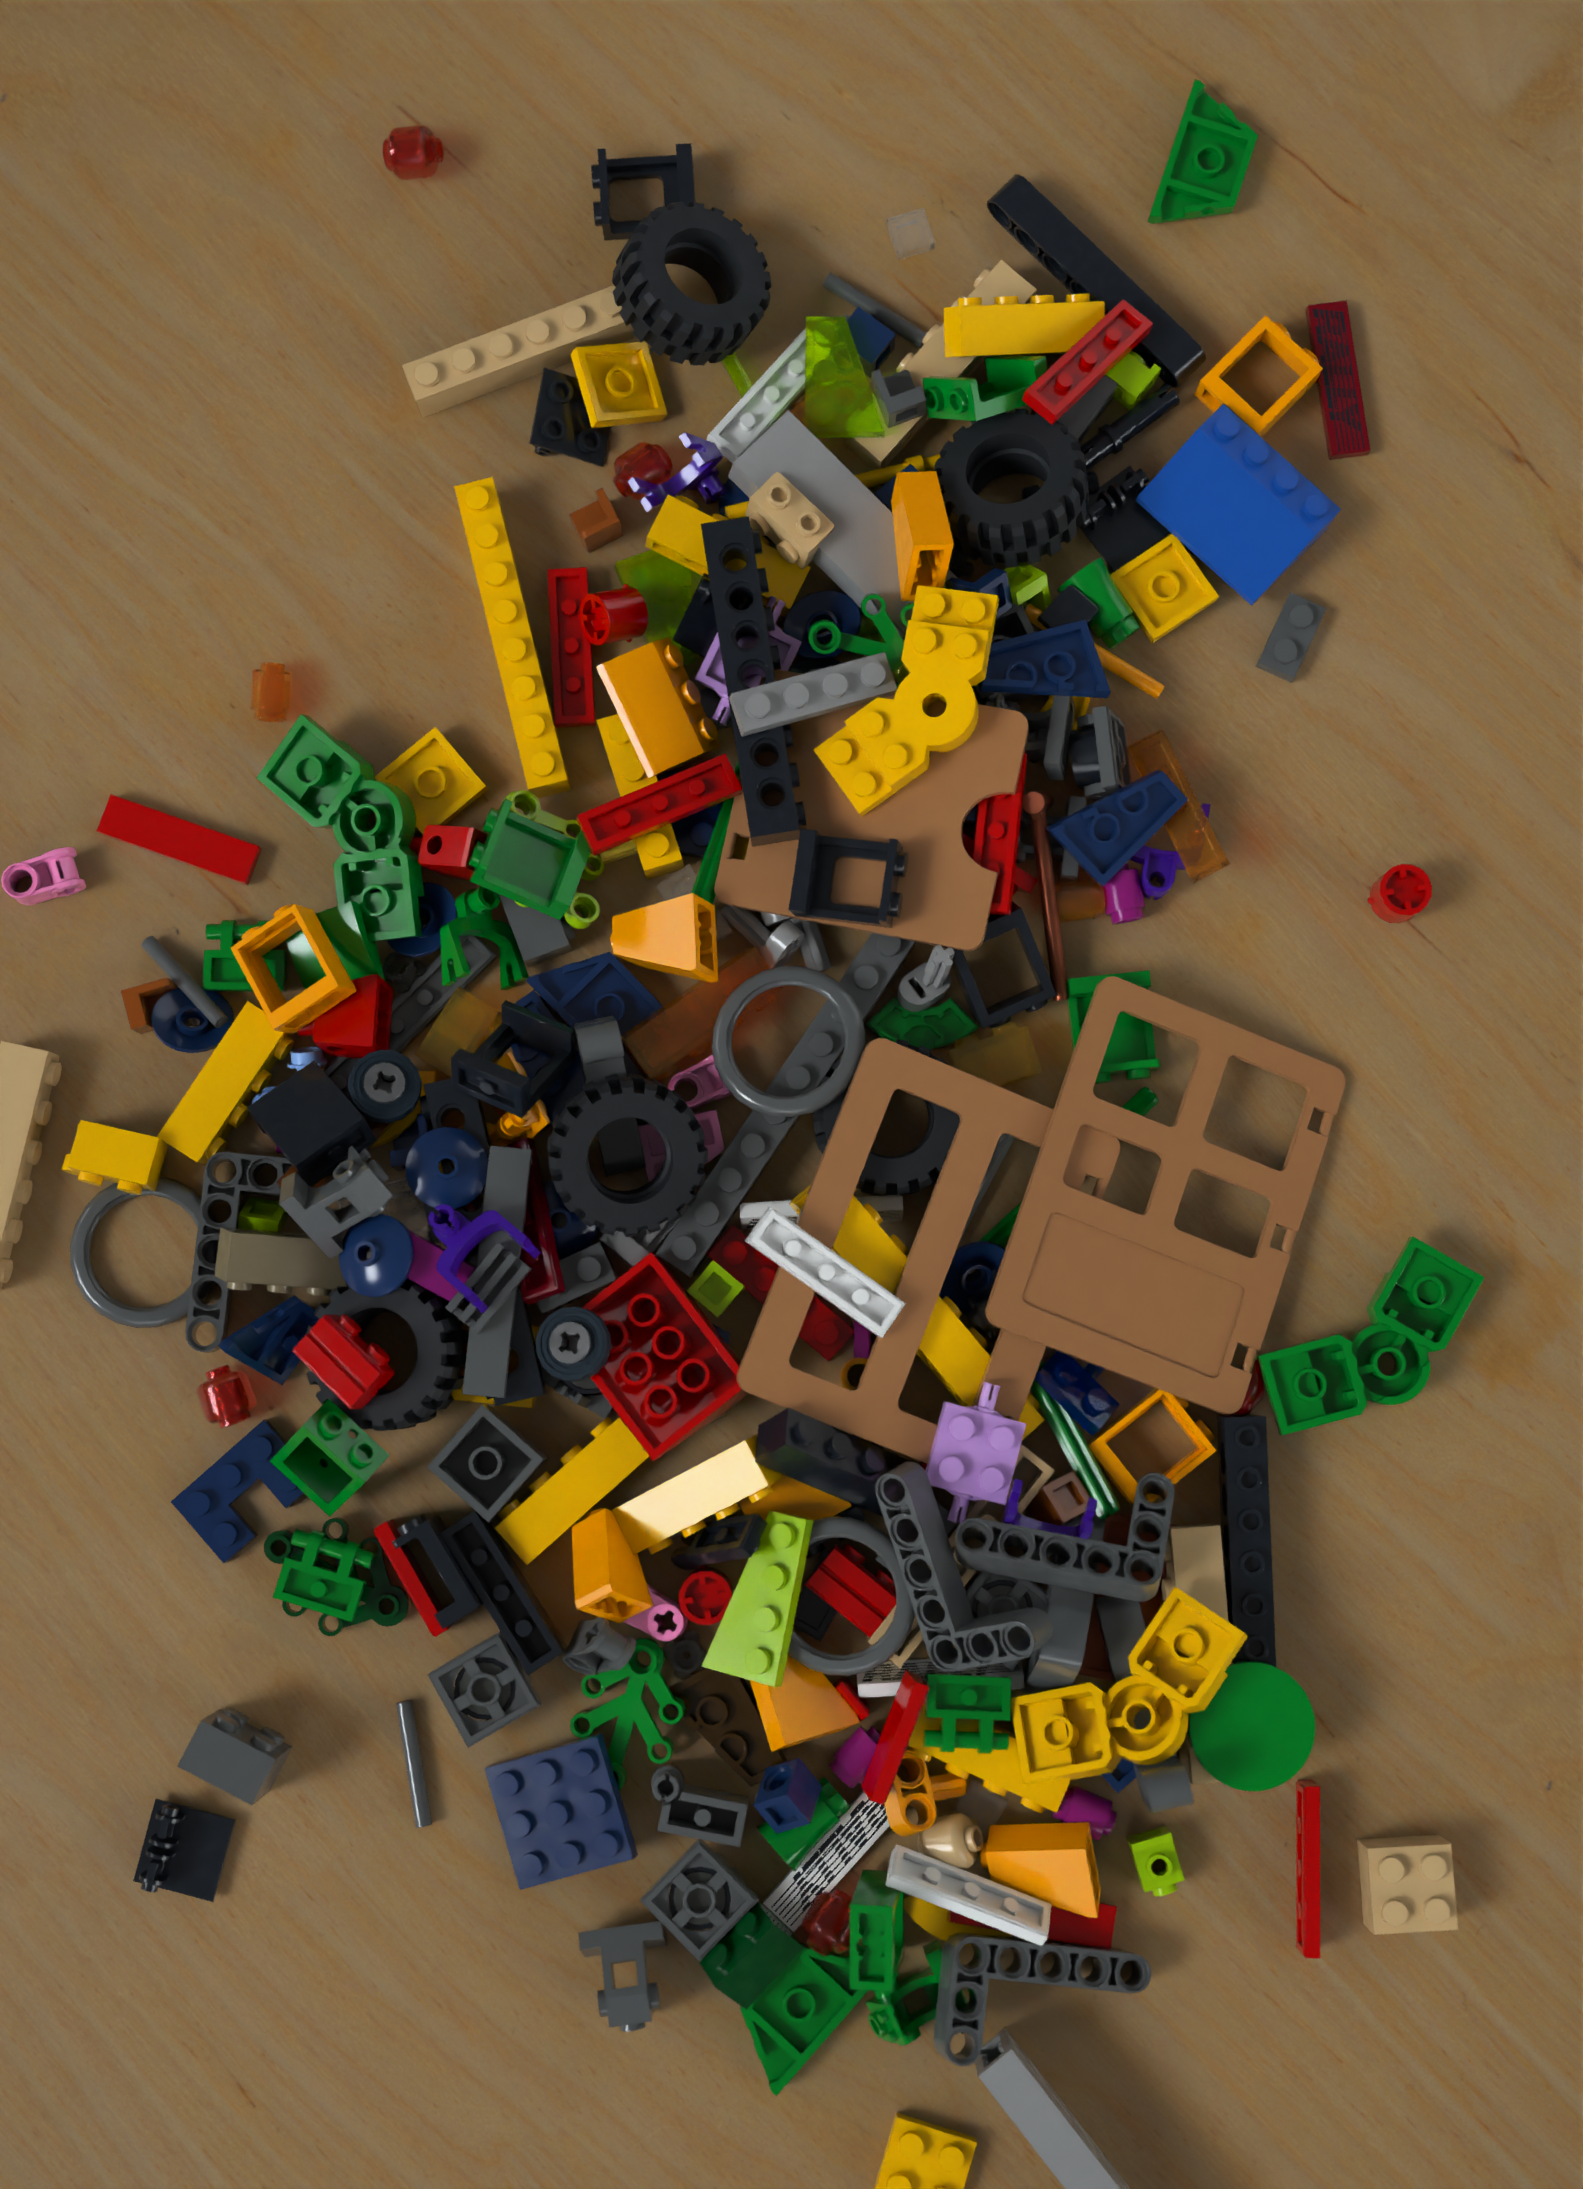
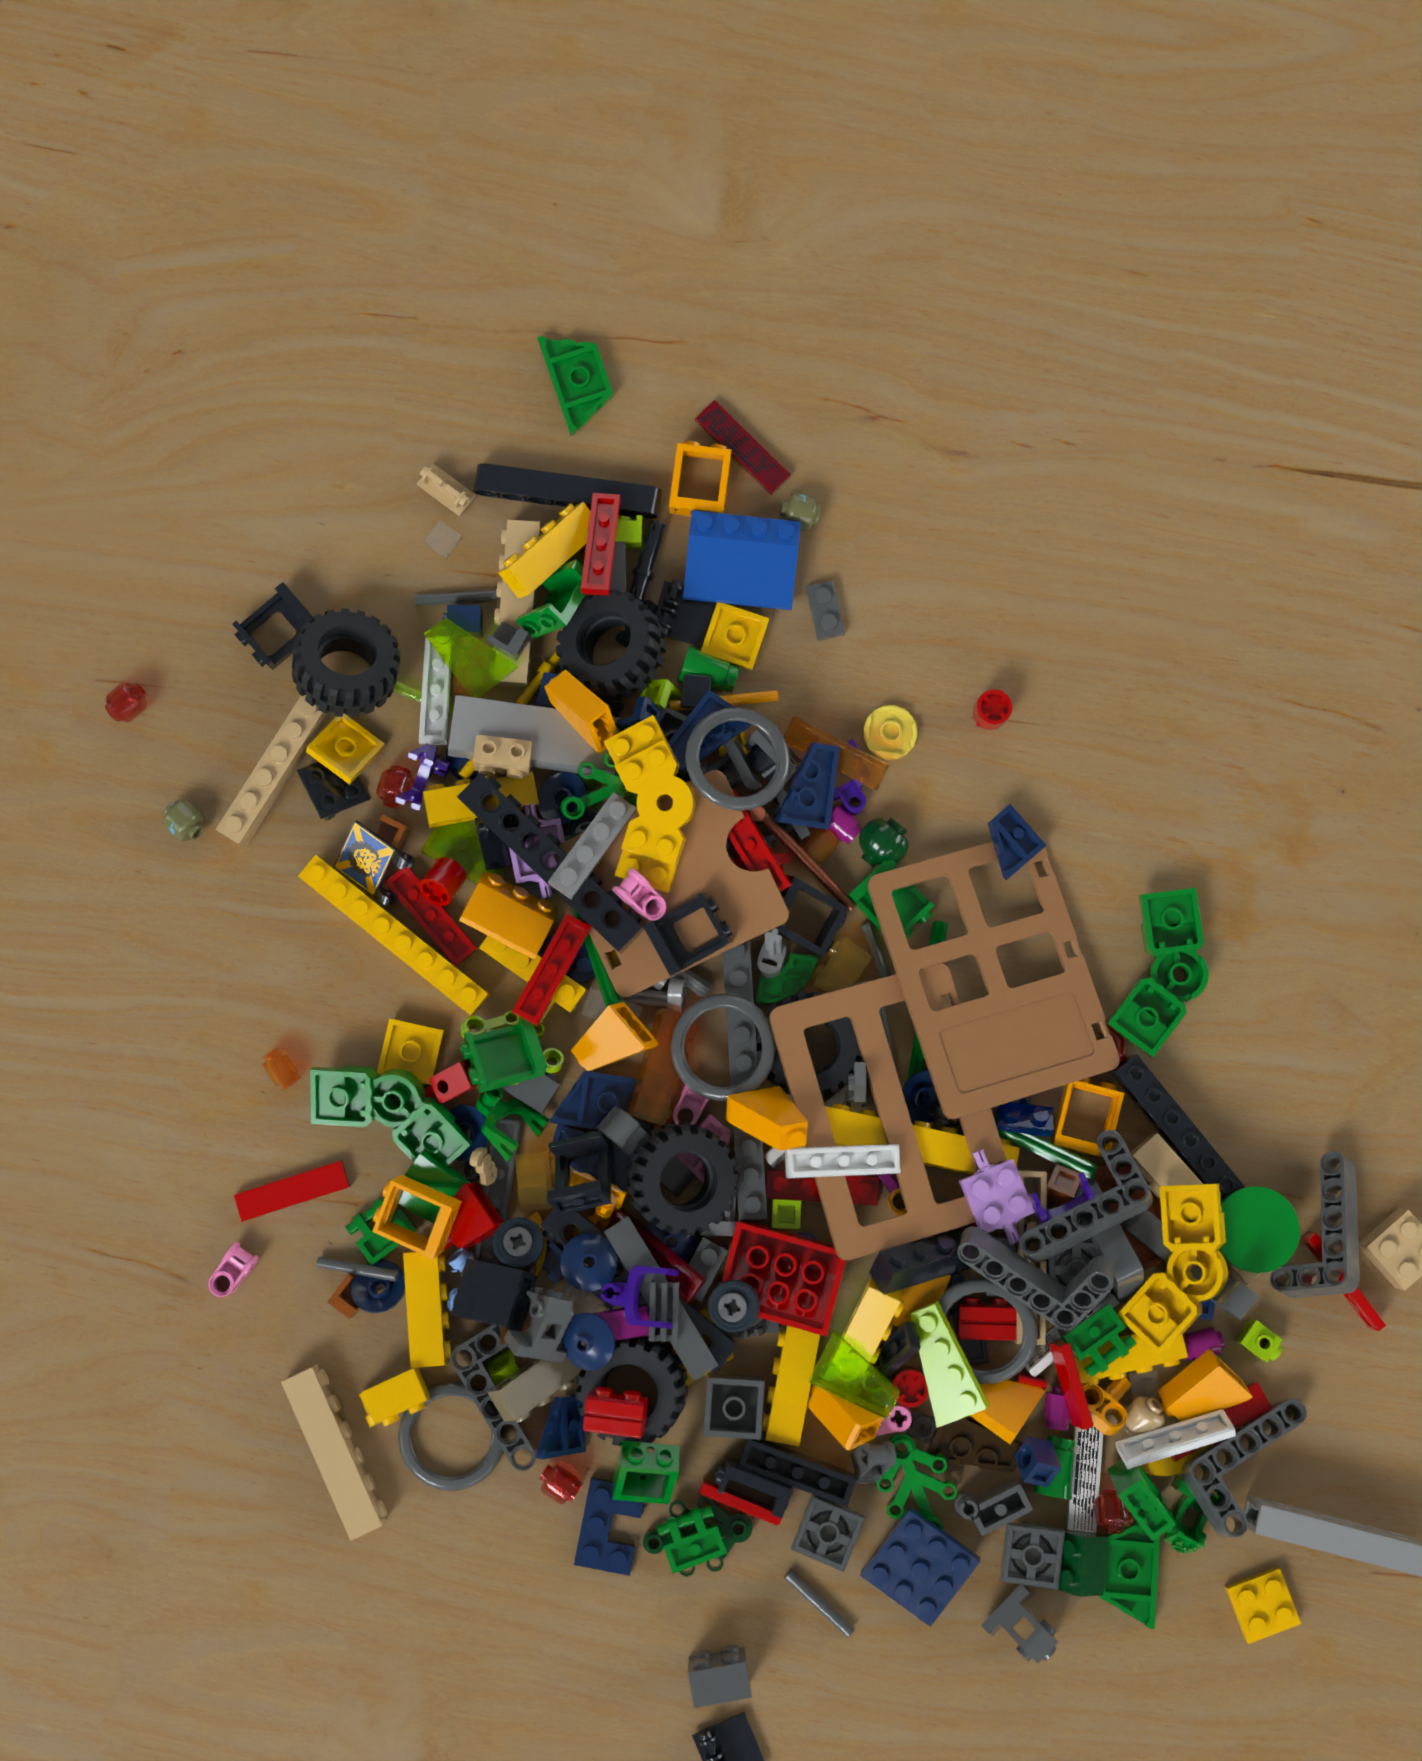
camera: 40 degrees left, 0 degrees up
(375, 332) = (183, 820): none -> olive head
(413, 971) = (484, 1166): none -> tan piece
(545, 530) = (367, 860): none -> flag
(648, 1534) = (853, 1378): none -> clear neon green wing
(778, 1157) = (768, 1117): none -> light orange slope
(824, 785) = (637, 893): none -> bright pink piece
(909, 1201) = (857, 1085): none -> dark grey plate
(956, 177) = (445, 489): none -> tan hinge
(1003, 751) = (711, 793): none -> dark grey wedge
(1049, 1070) = (874, 951): none -> dark grey bar
(1155, 950) = (883, 841): none -> dark green plant
(1248, 830) = (882, 734): none -> light yellow tile
(1309, 1062) = (1013, 840): none -> dark blue wing
(1335, 1805) = (1332, 1237): none -> dark grey beam
(1353, 497) = (801, 509): none -> olive head

